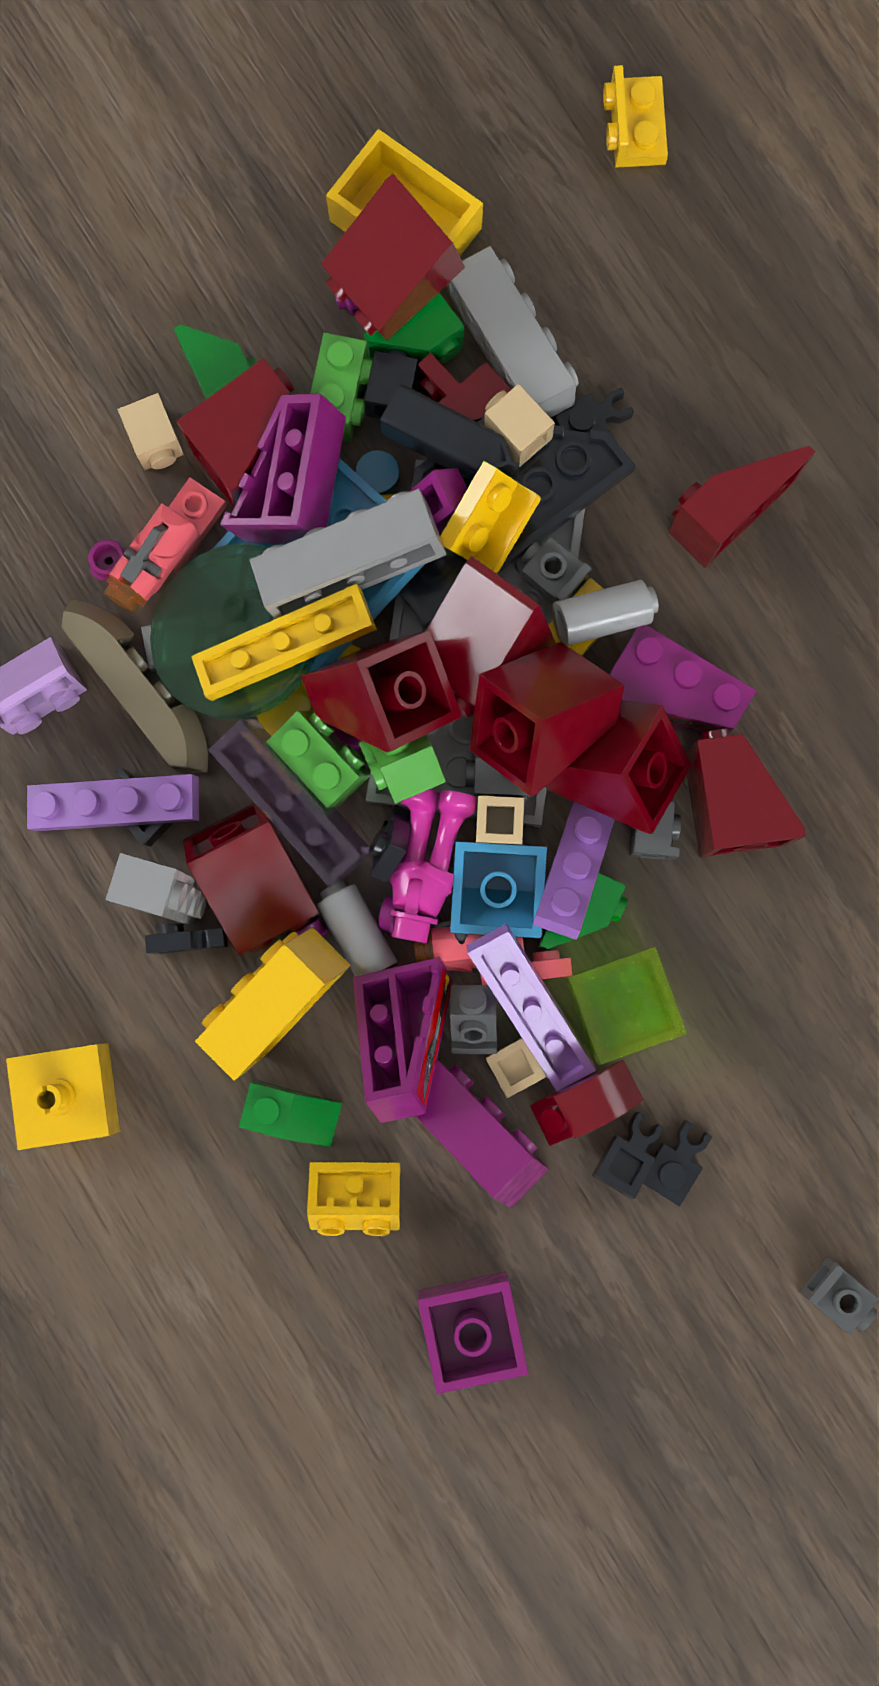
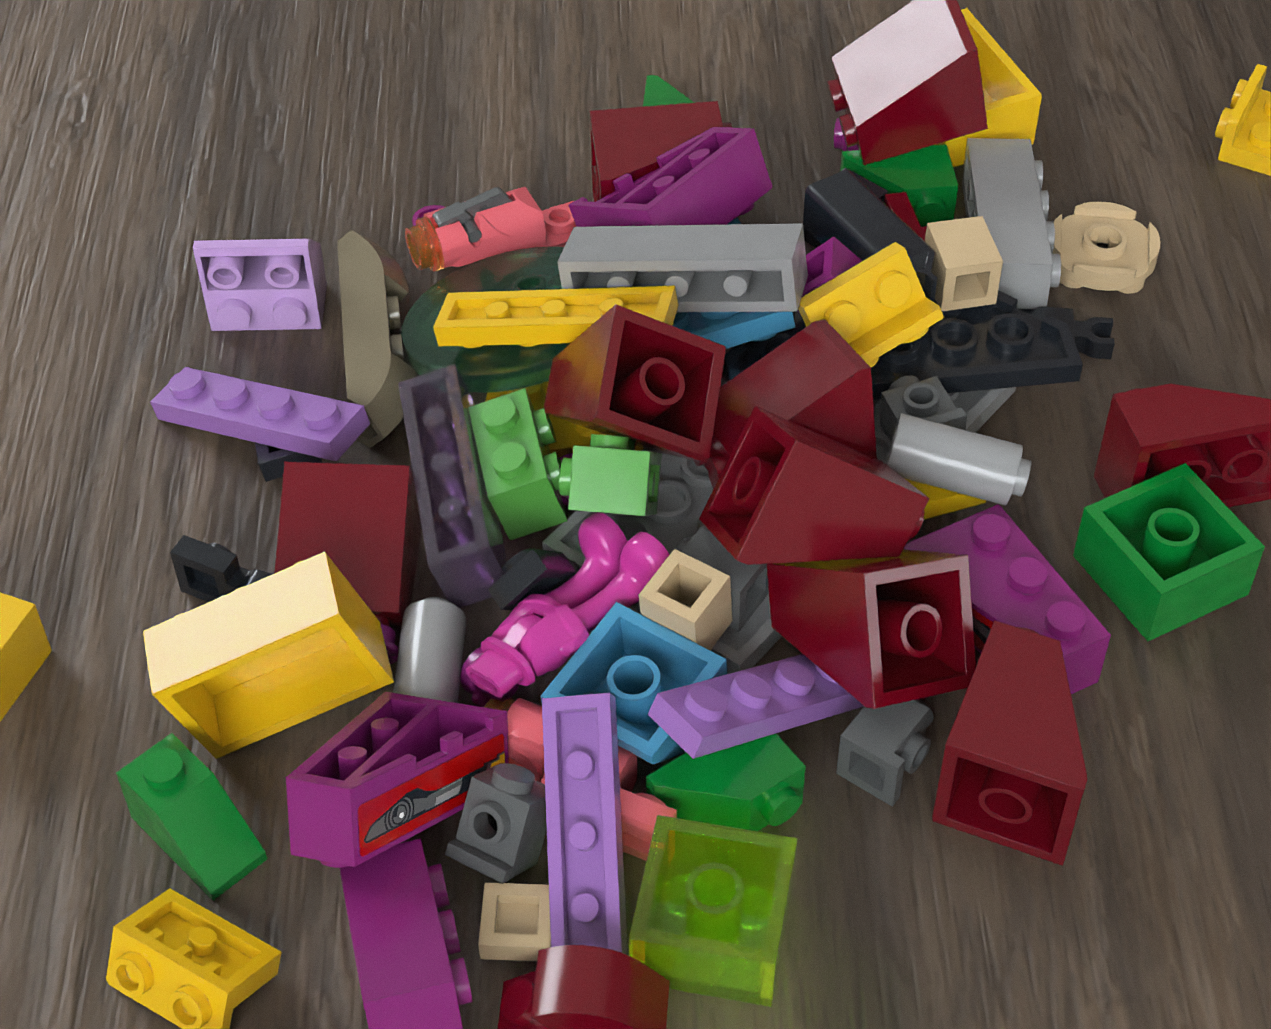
camera: 30 degrees right, 35 degrees down
(151, 432) = (561, 150): tan brick -> none
(156, 890) = (227, 454): light grey brick -> none
(341, 375) = (792, 169): bright green brick -> none
(592, 295) = (1122, 265): none -> tan plate
(754, 592) = (1167, 551): none -> green brick

